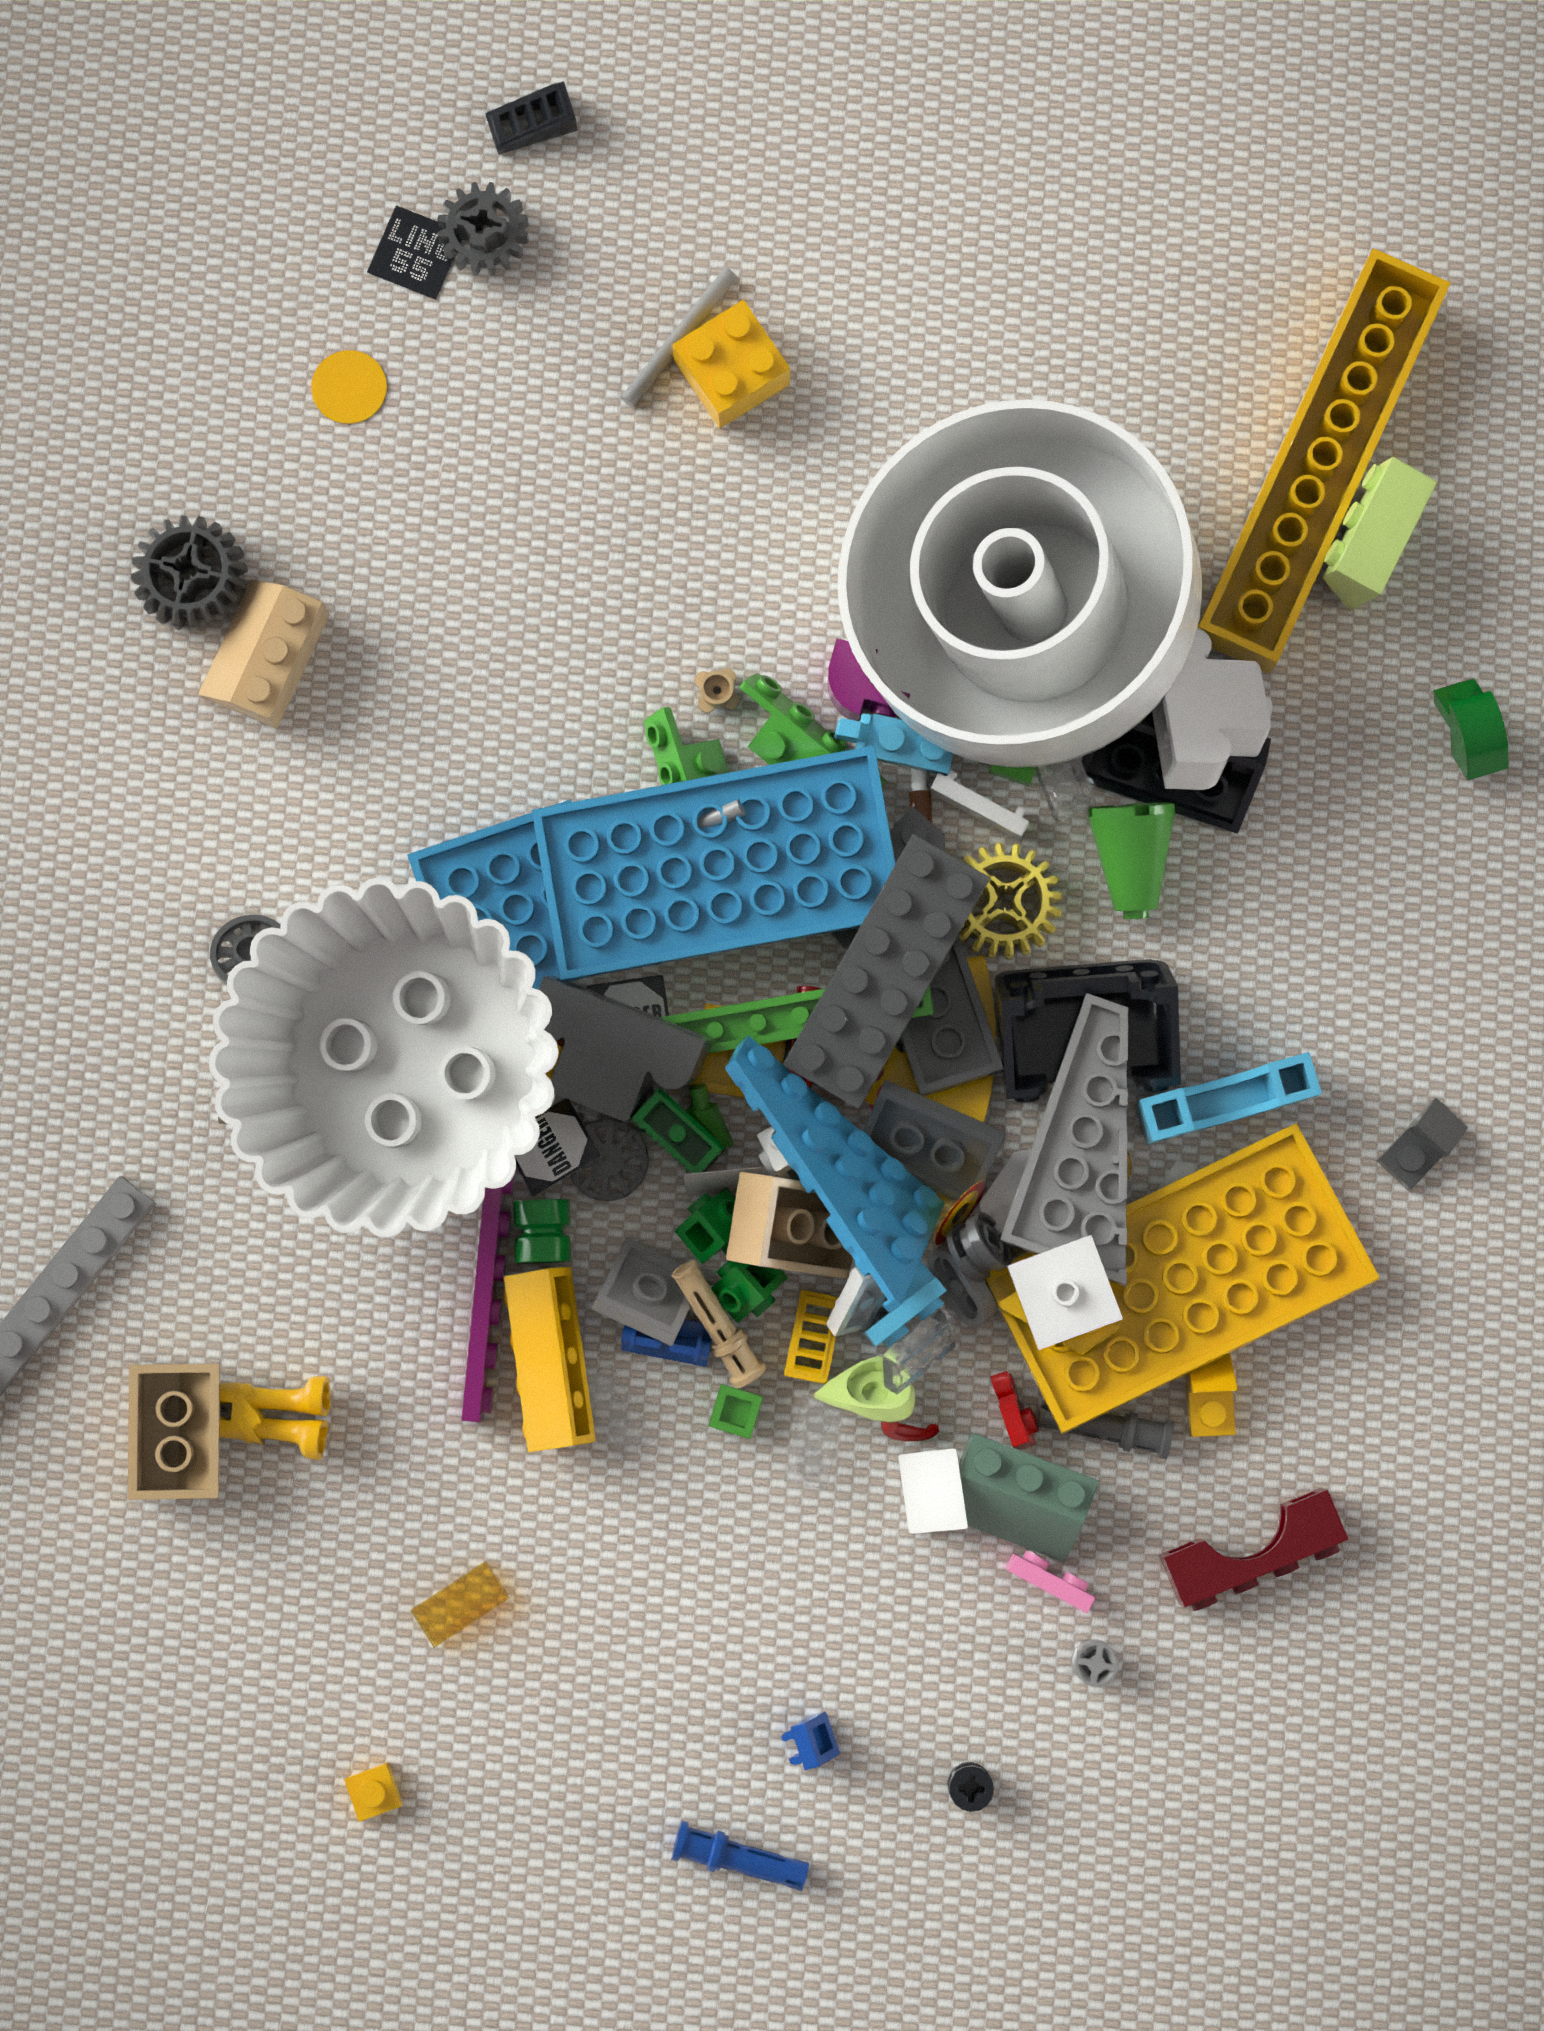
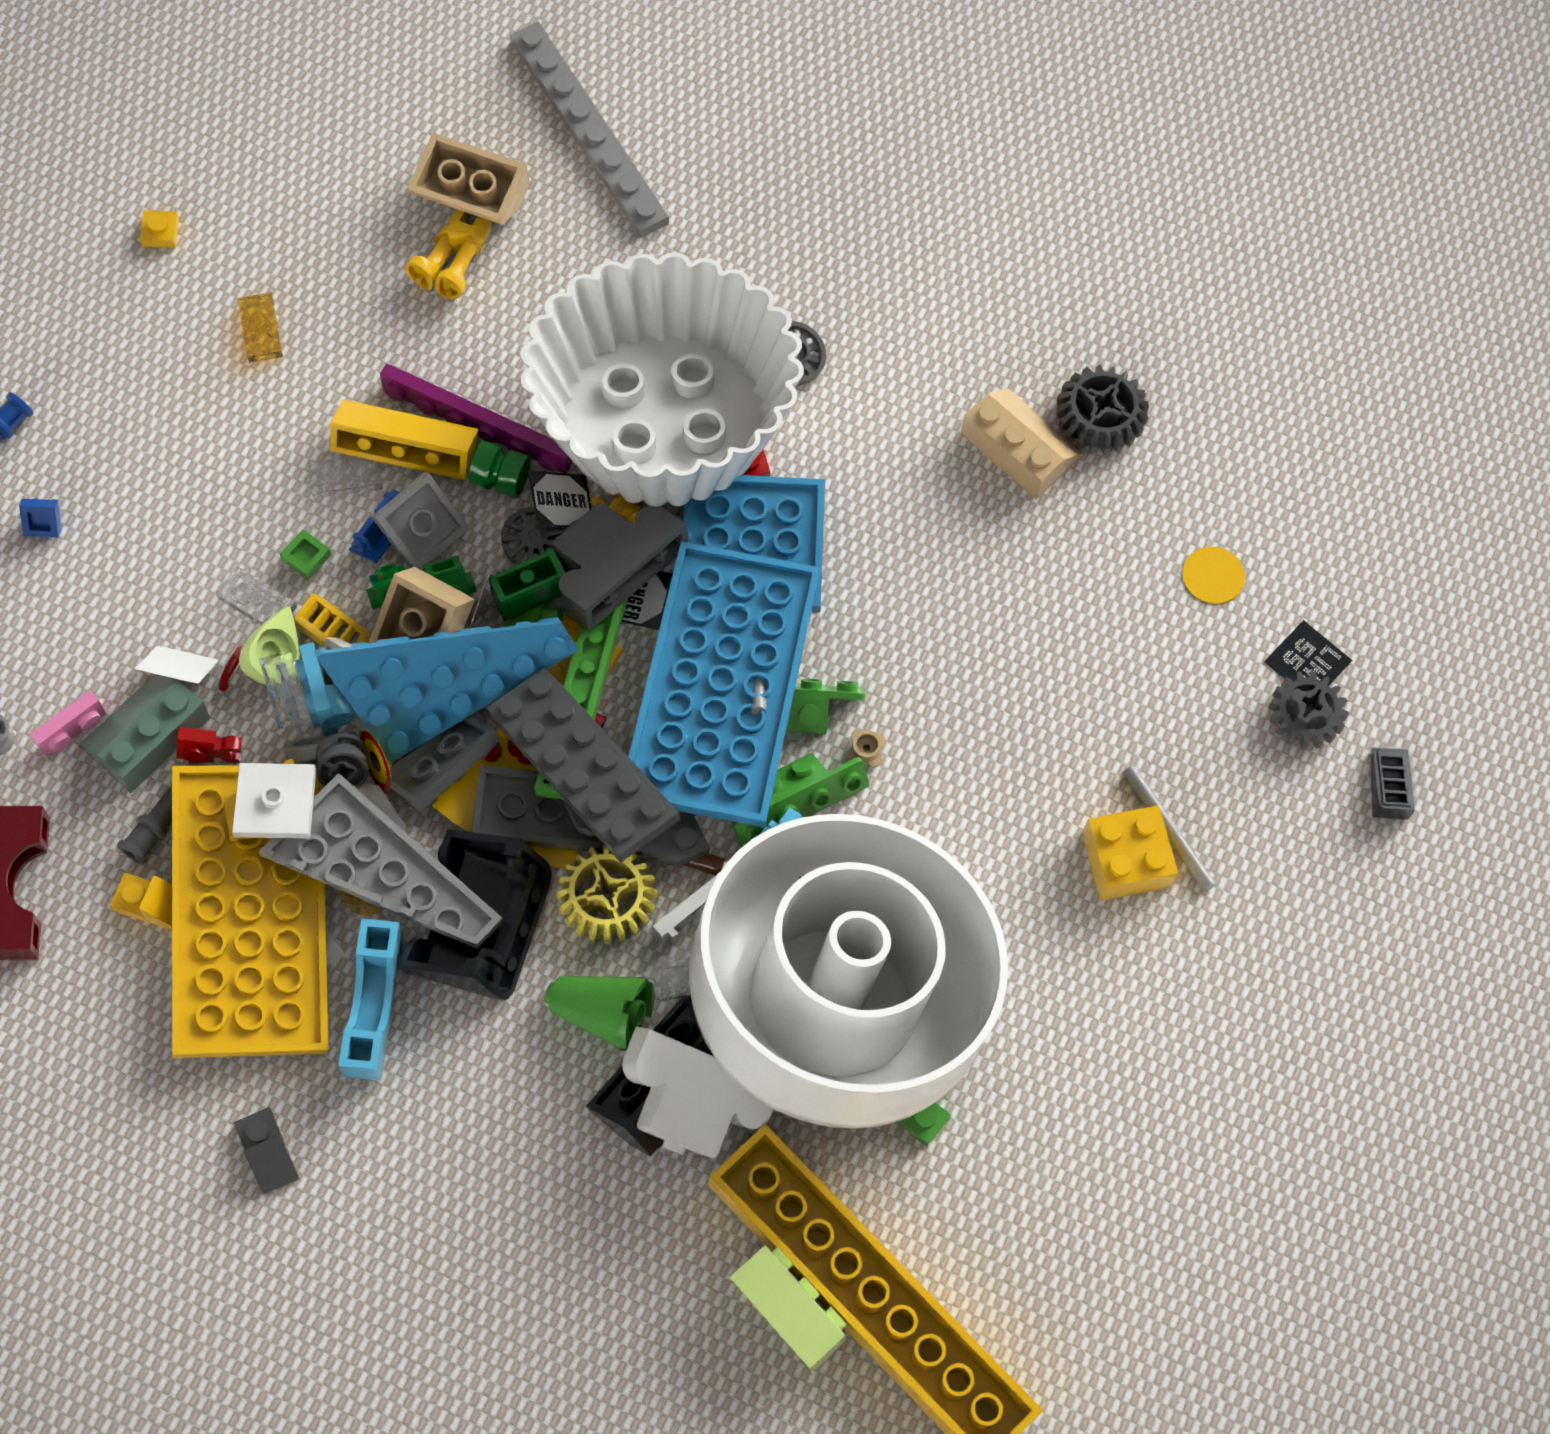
camera: 105 degrees right, 15 degrees down
(727, 1341) = (358, 563): tan pin -> none
(1475, 728) = (591, 1331): green brick -> none

